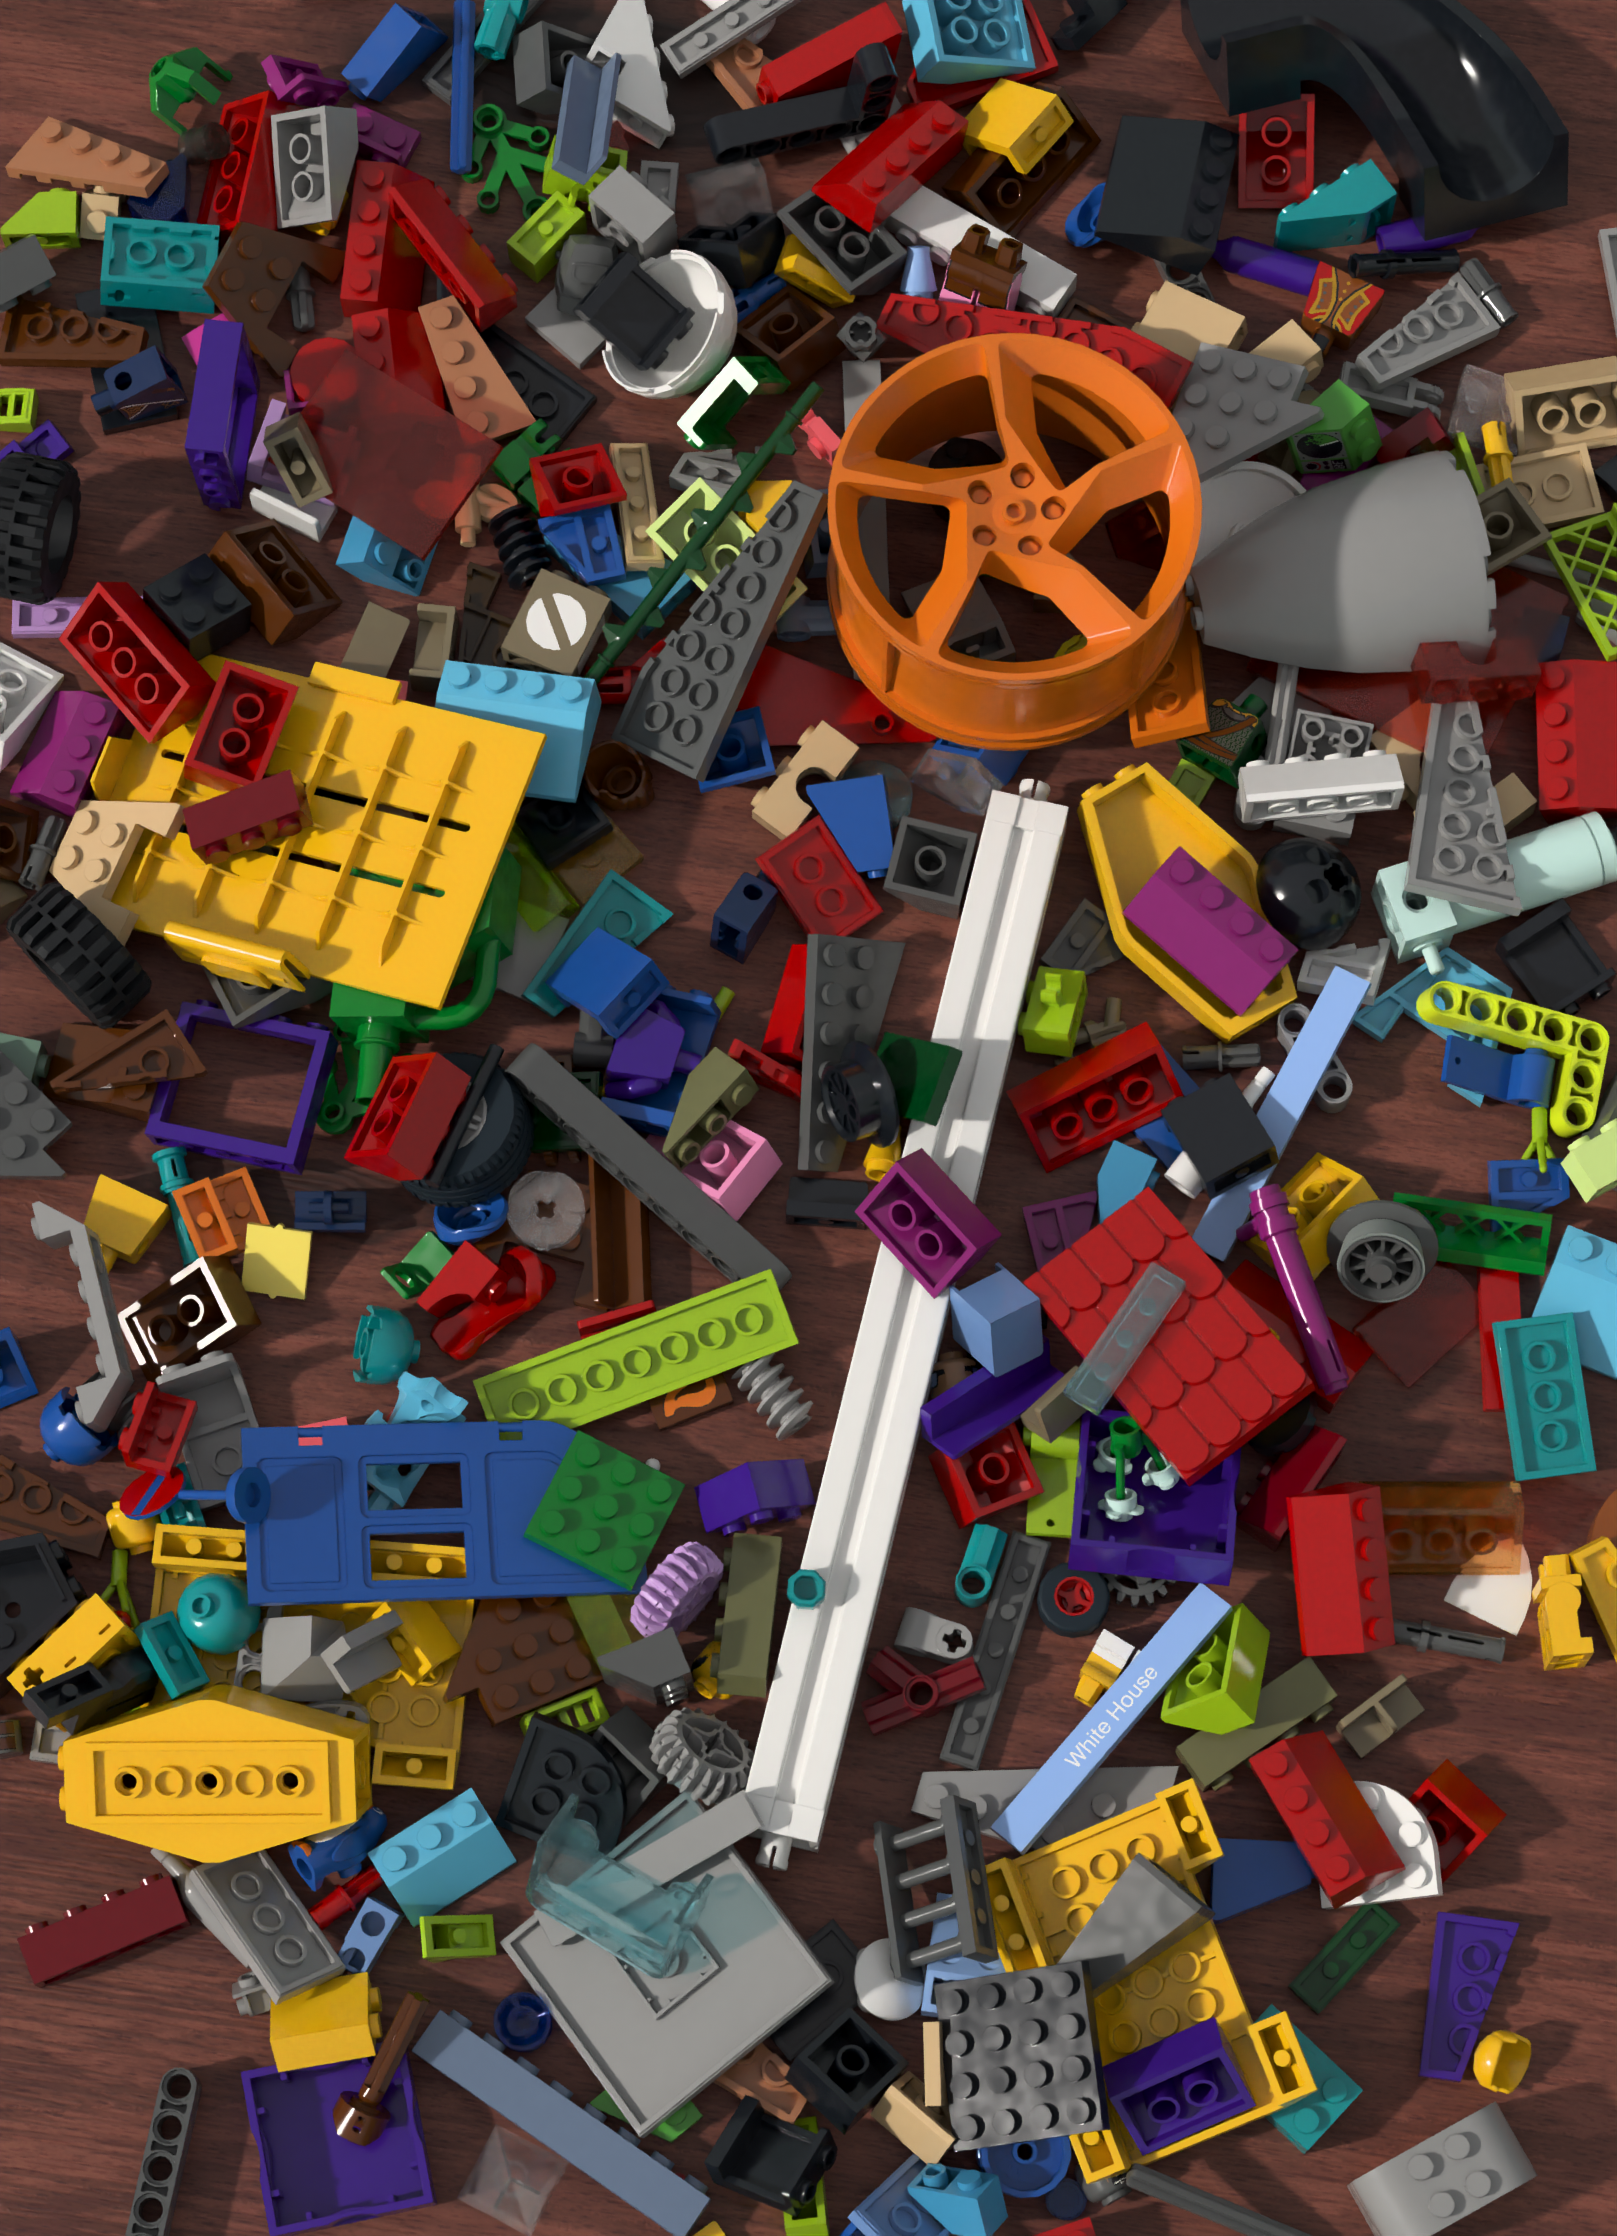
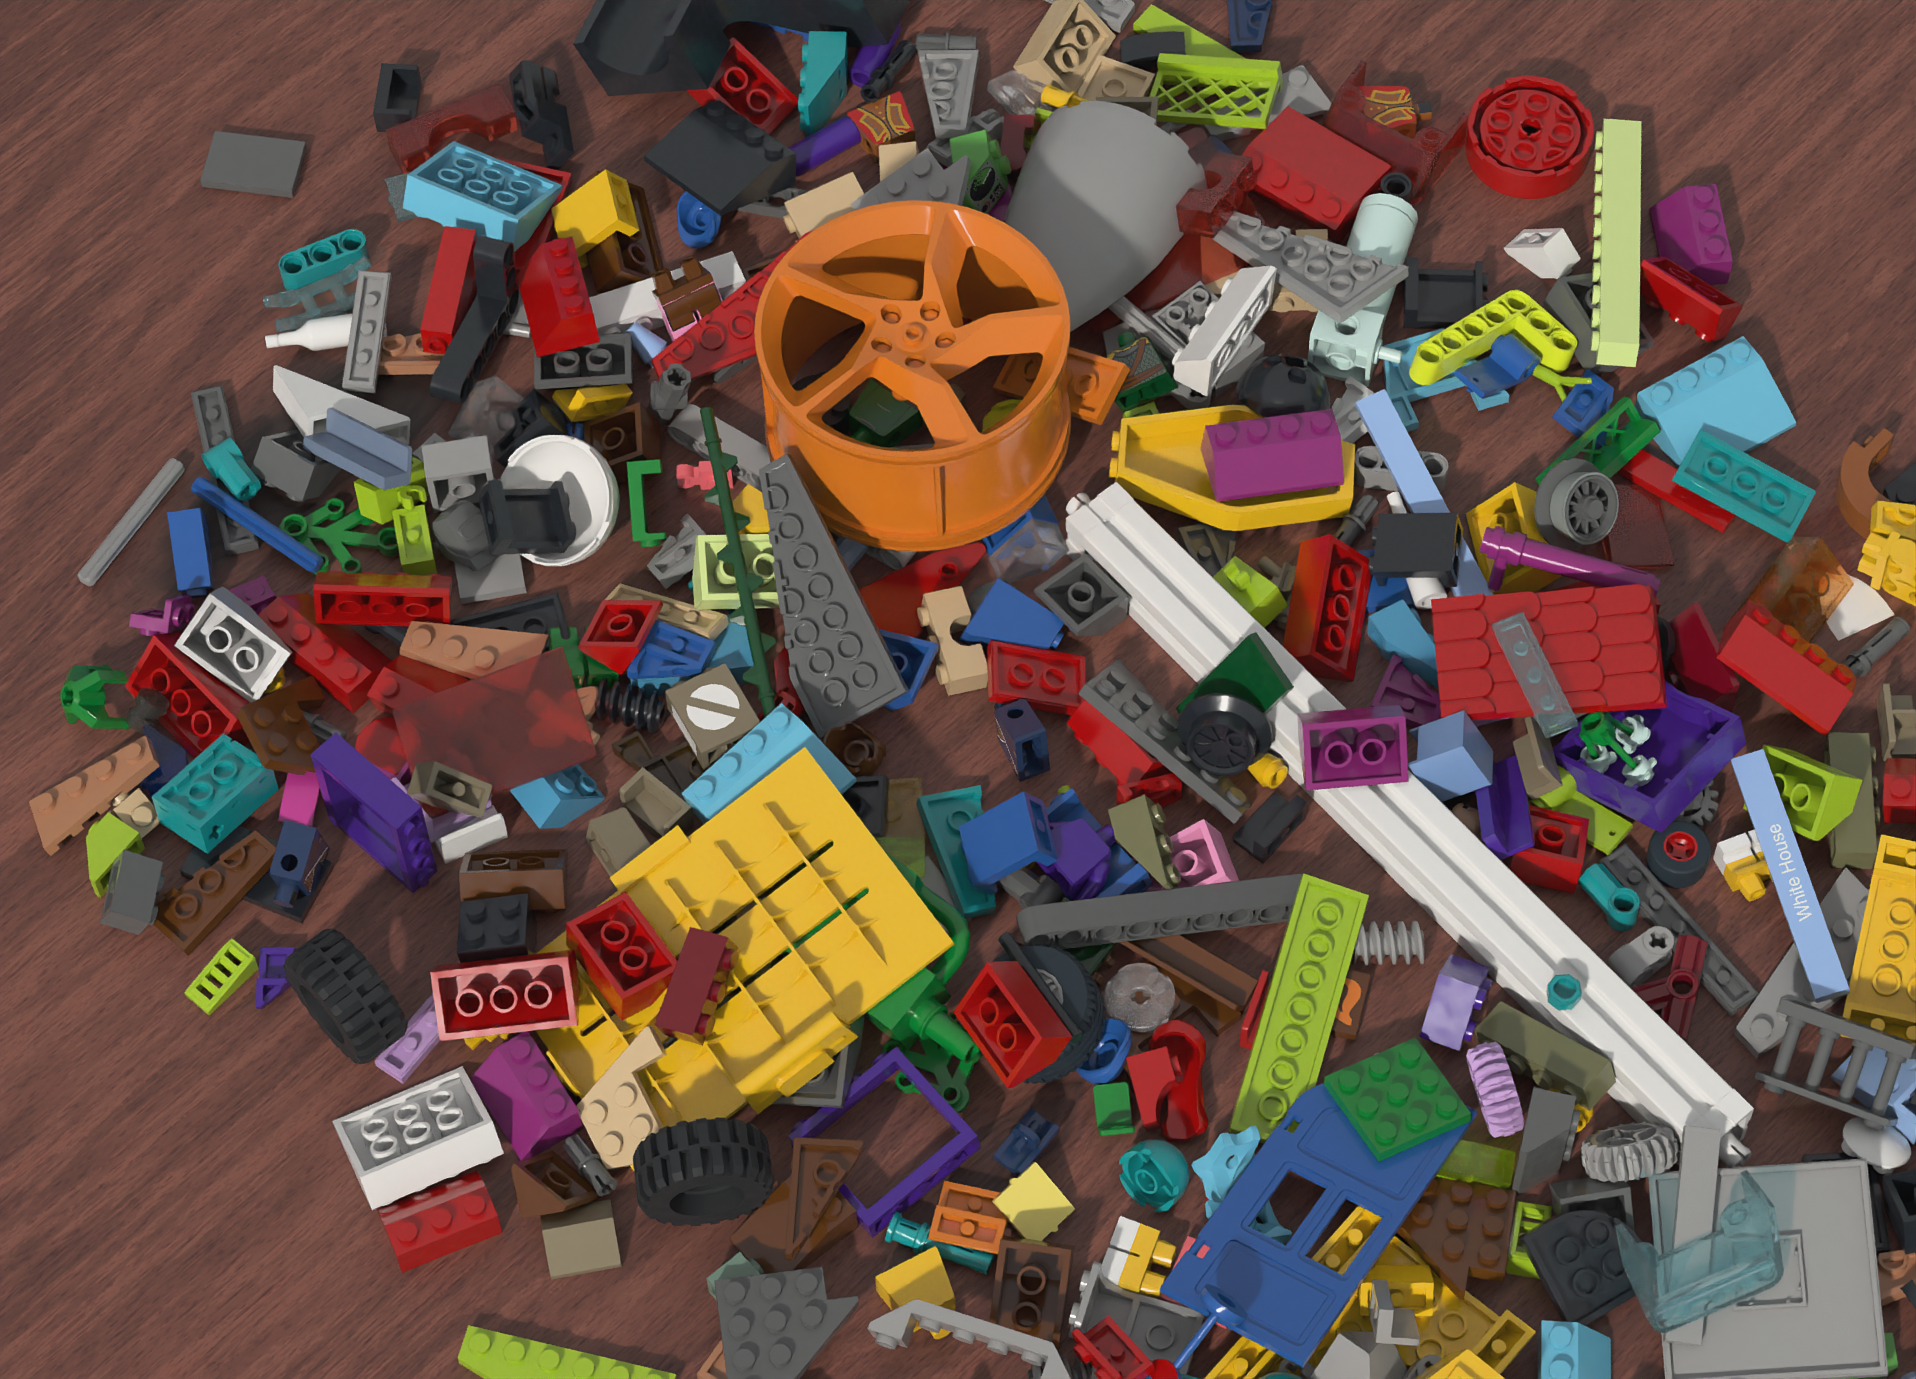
camera: 55 degrees left, 15 degrees down
(302, 1387) = (1131, 1255): none -> yellow hips

